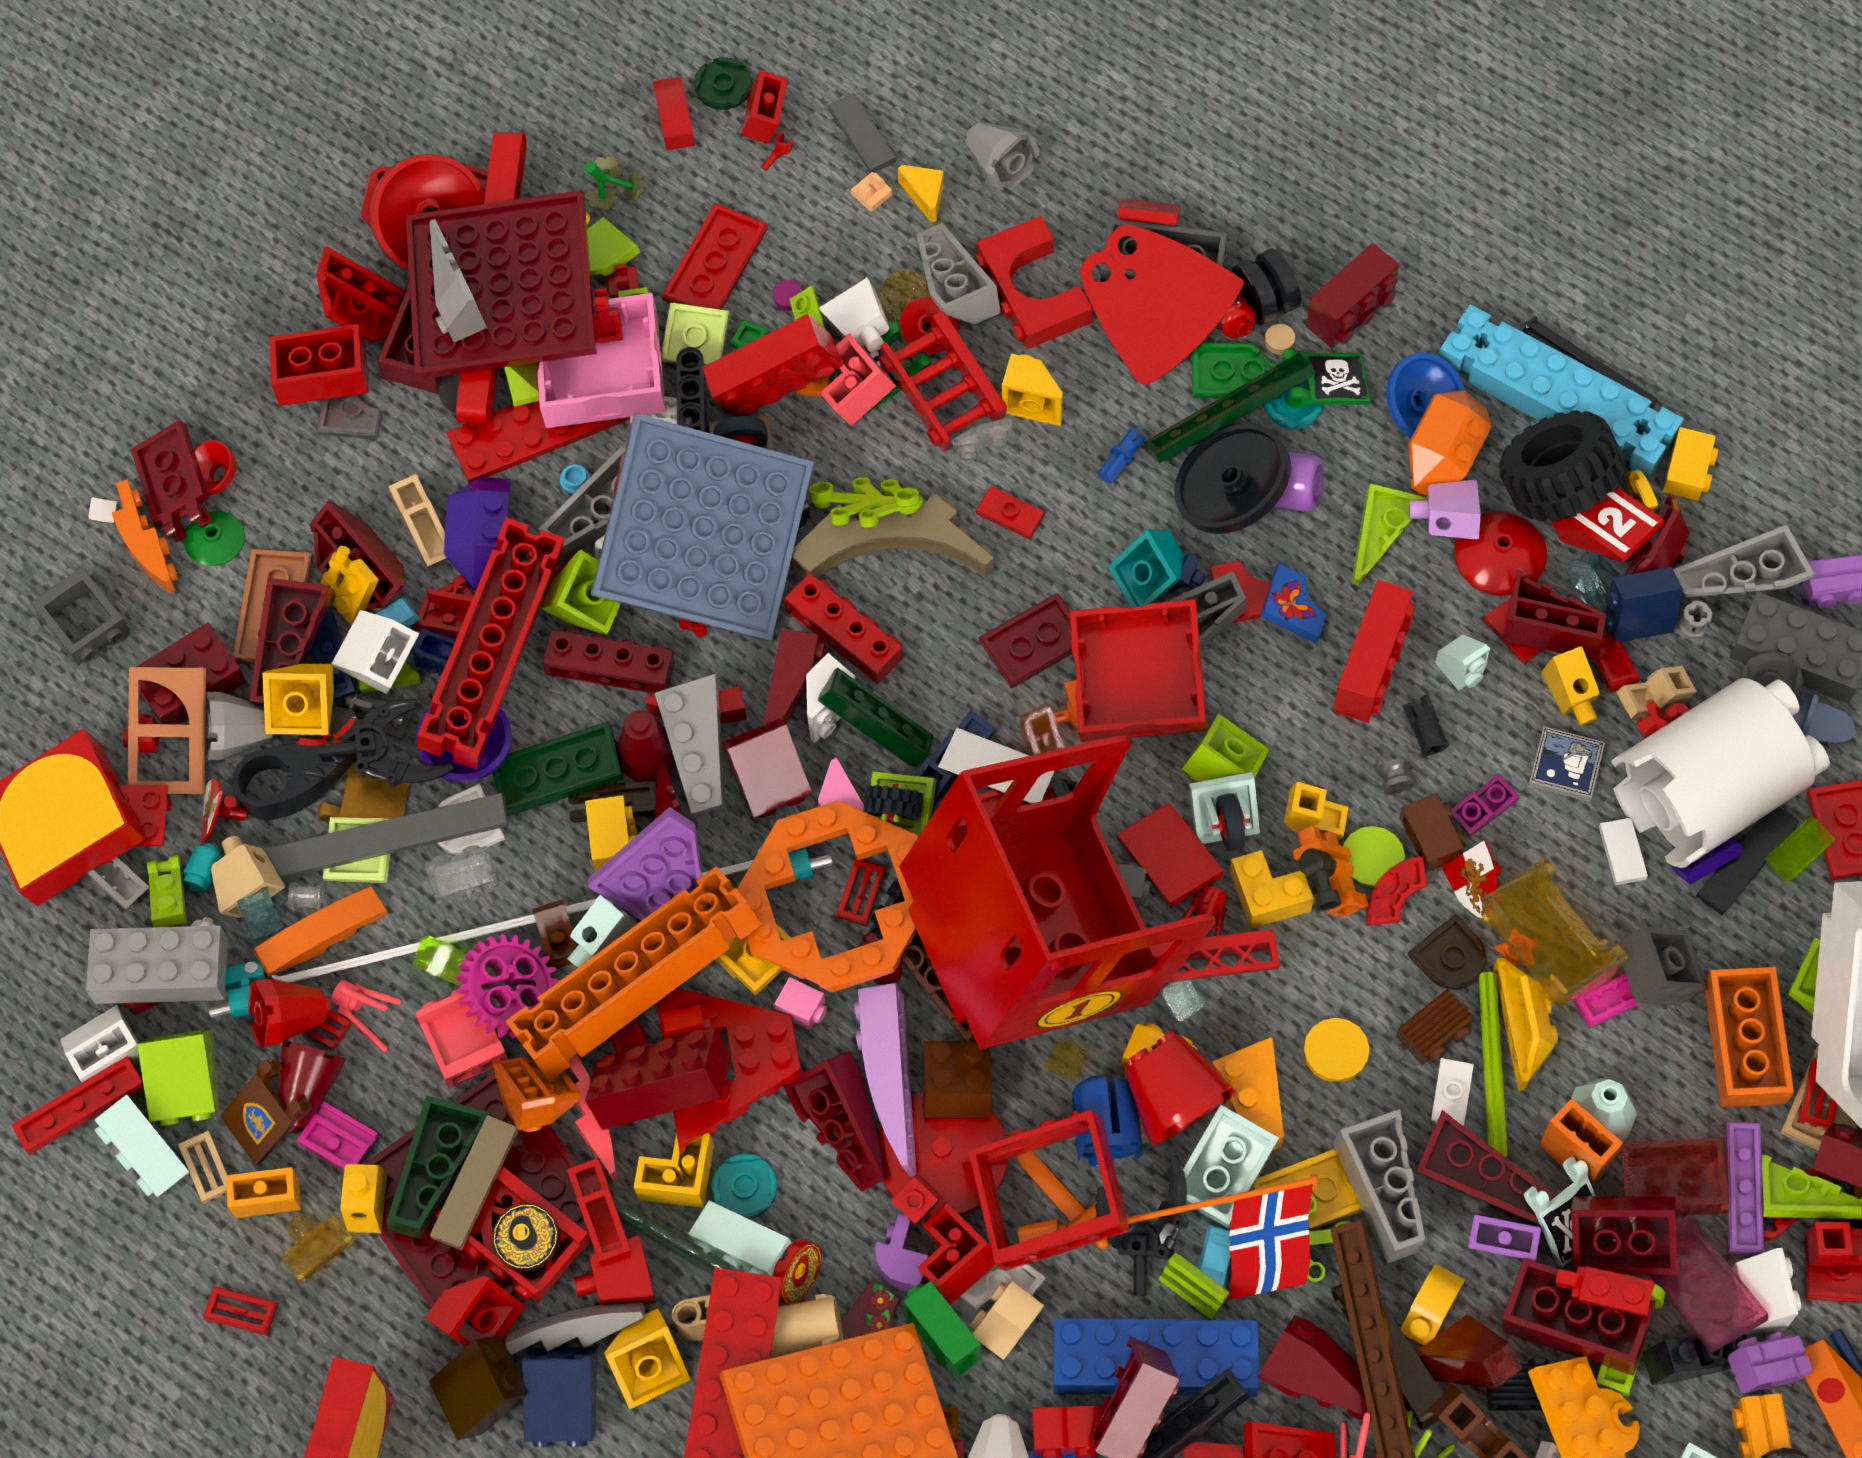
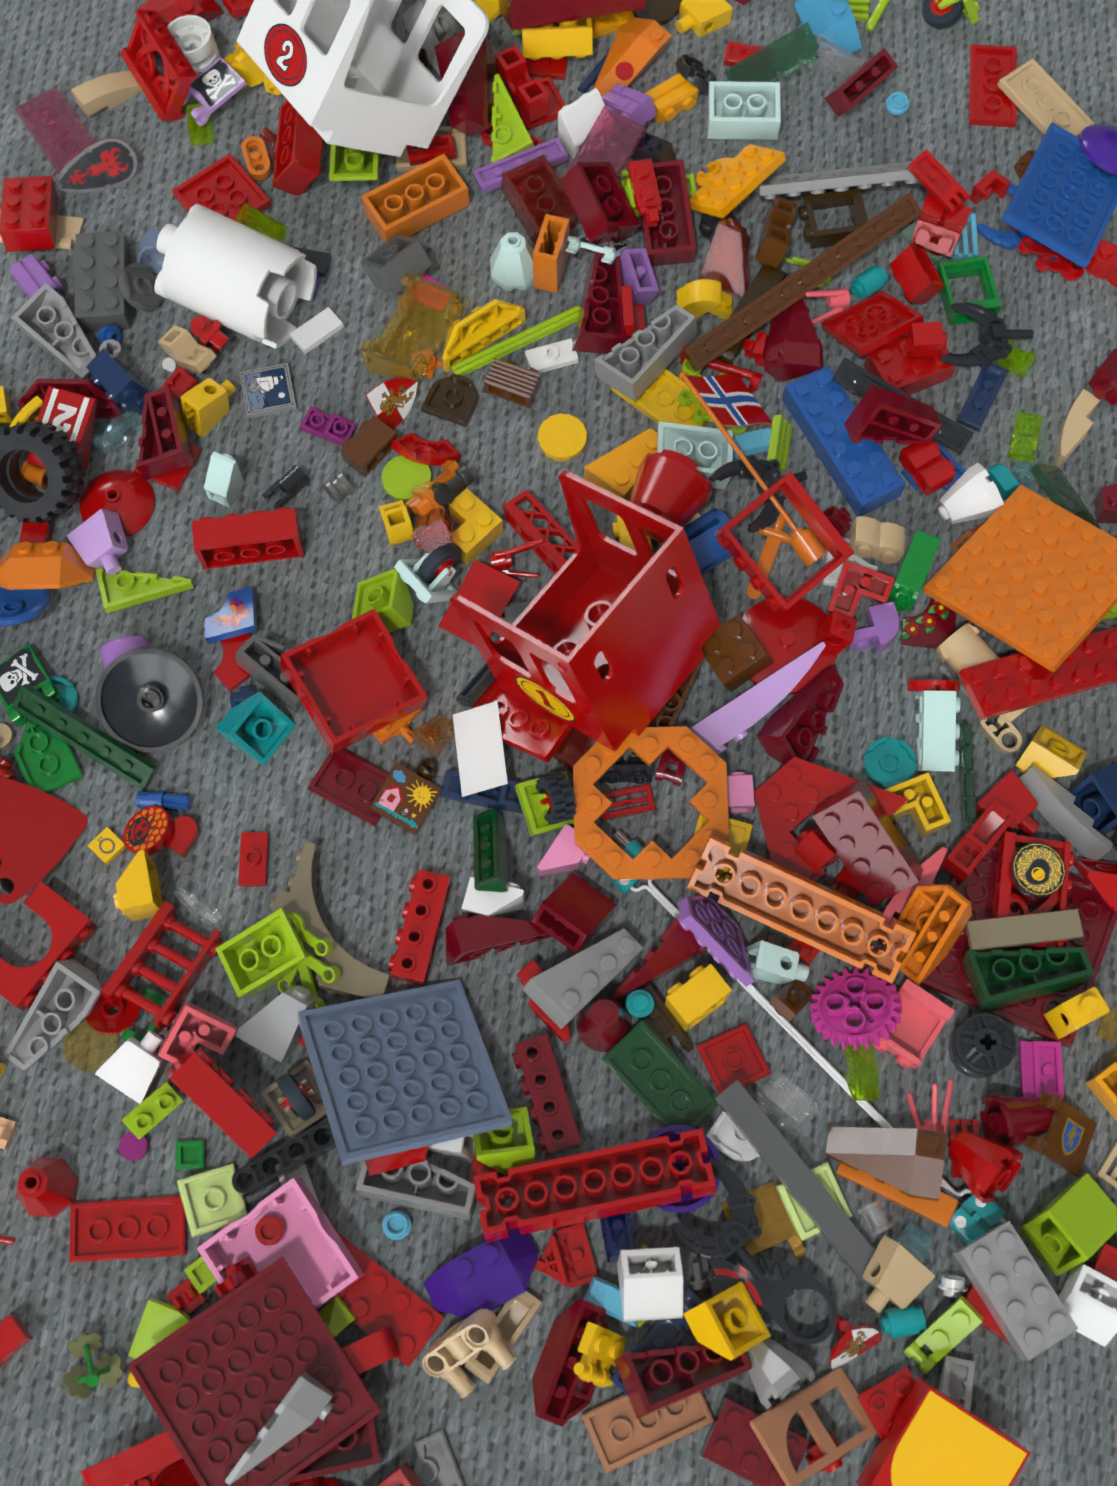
camera: 120 degrees left, 5 degrees up
(341, 937) = (899, 1156): none -> wedge
(393, 1103) = (970, 1055): none -> black wheel
(431, 479) = (461, 1343): none -> tan piece
(536, 853) = (733, 1058): none -> red tile
(633, 365) = (270, 1230): none -> red tile
(640, 784) = (639, 1004): none -> teal plate
(794, 207) = (46, 1187): none -> red cone
(828, 449) = (276, 1026): none -> light grey slope
(896, 460) = (262, 954): none -> lime slope
(989, 676) = (405, 799): none -> reddish brown tile
(1011, 720) = (422, 771): none -> dark brown hinge
(1057, 1288) = (839, 518): none -> dark red gear
(1072, 456) = (183, 836): none -> red piece
(1093, 426) = (148, 830): none -> tile
(1103, 388) = (106, 846): none -> yellow tile
(1268, 825) = (432, 531): none -> clear red brick
(1301, 1309) = (753, 376): none -> red hinge
(1336, 1328) = (756, 348): none -> red tile
(1446, 1196) = (632, 313): none -> red slope
(1491, 453) = (35, 532): none -> red piece
(1724, 627) = (109, 332): none -> blue plate

